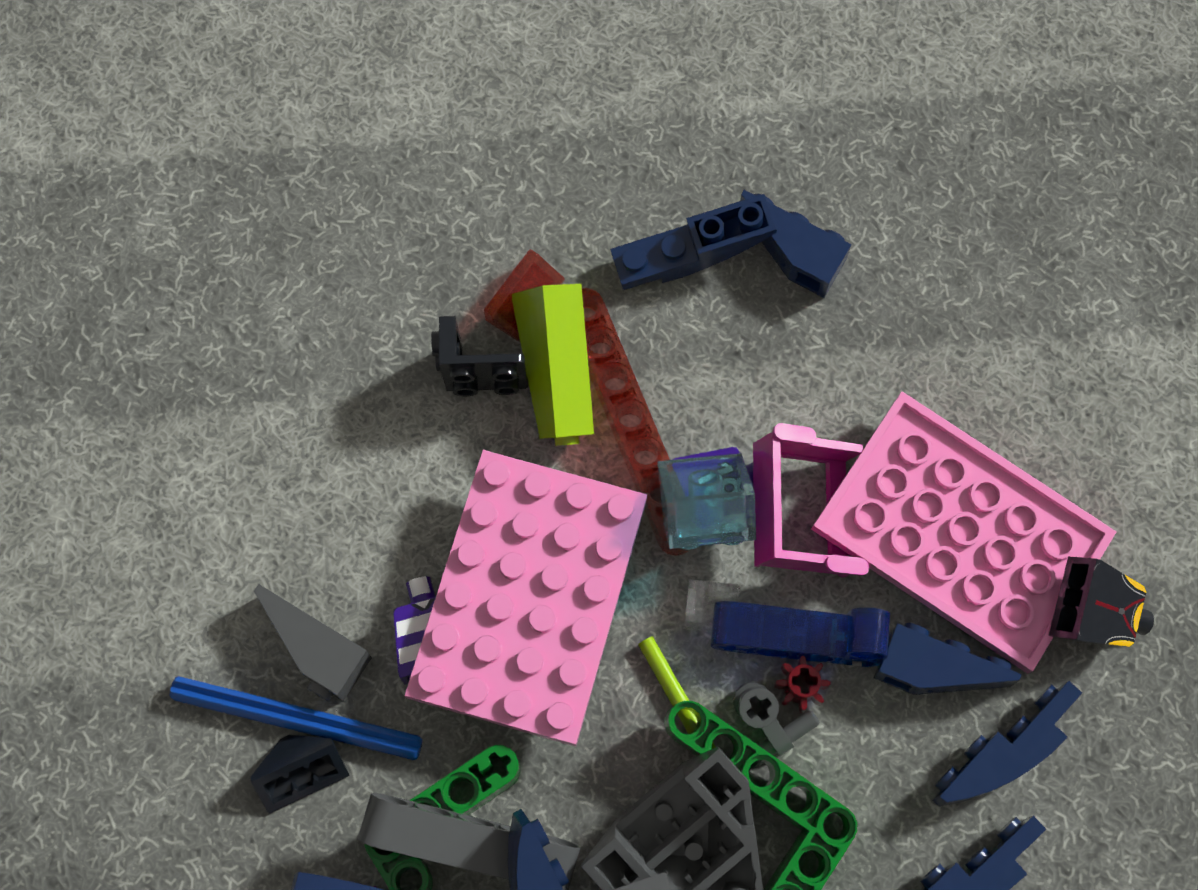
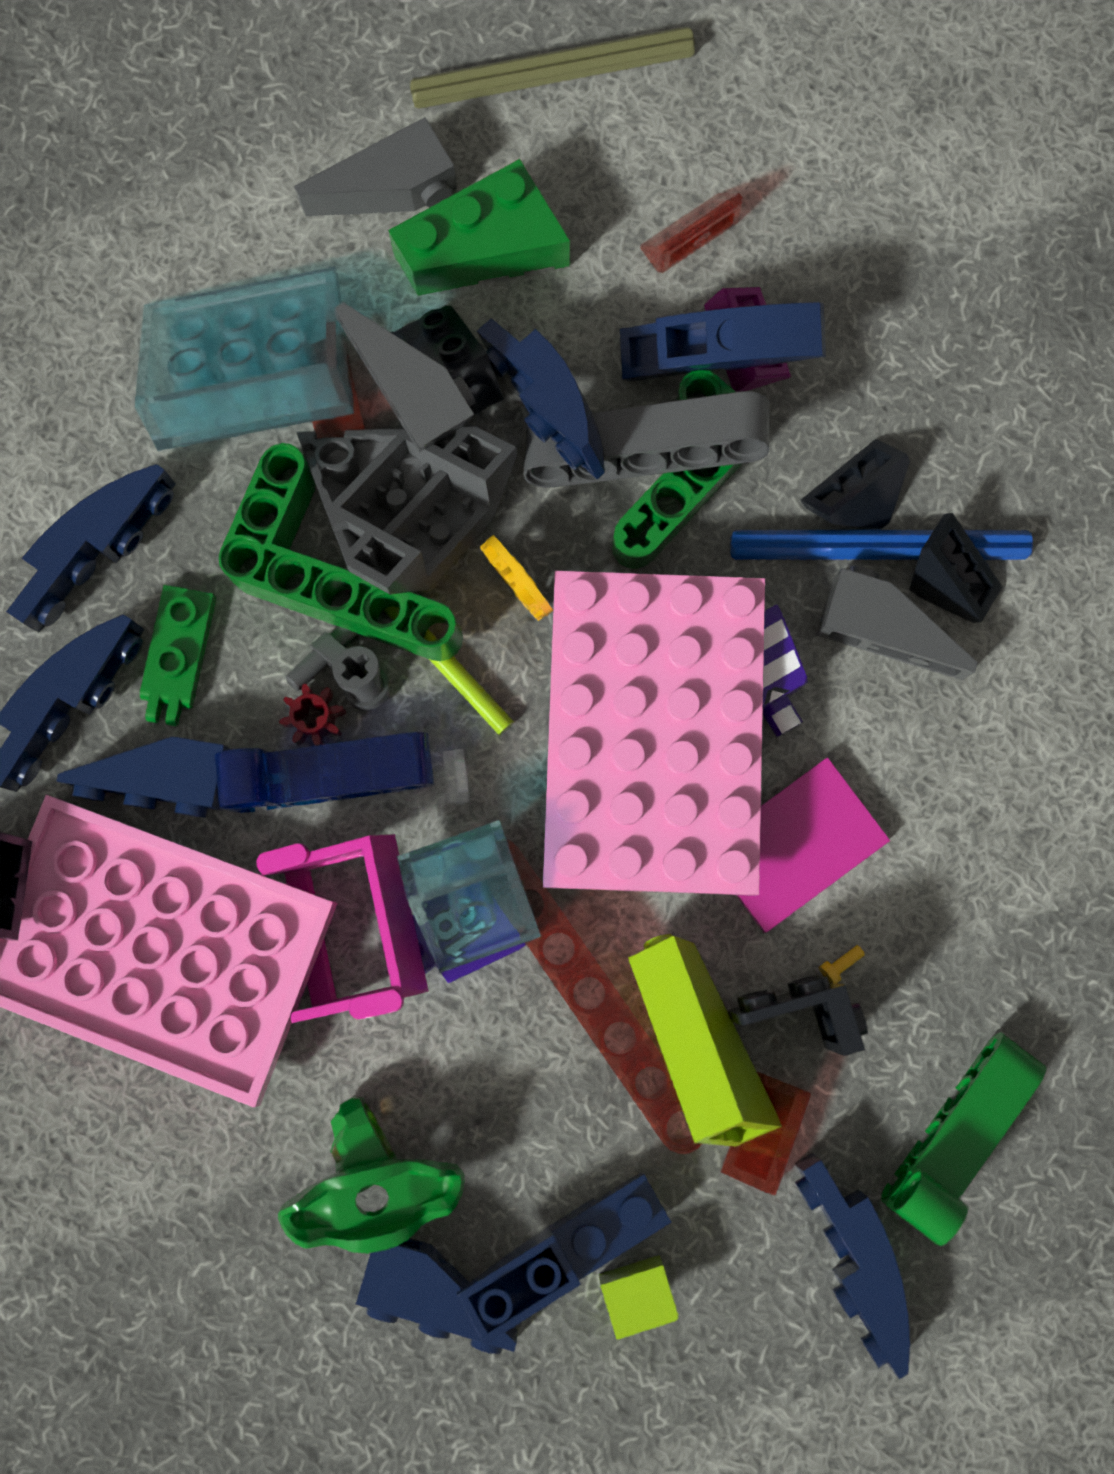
camera: 165 degrees right, 10 degrees up
(242, 673) = (955, 573): none -> black slope
(384, 255) = (963, 1139): none -> green beam
(427, 495) = (808, 842): none -> dark pink tile
(434, 398) = (834, 970): none -> yellow piece
(478, 194) = (871, 1276): none -> dark blue slope
(608, 756) = (516, 578): none -> yellow wheel
(646, 208) = (638, 1297): none -> lime panel
(827, 350) = (358, 1136): none -> green rock
(855, 304) = (331, 1217): none -> green piece
(907, 772) = (176, 652): none -> green hinge

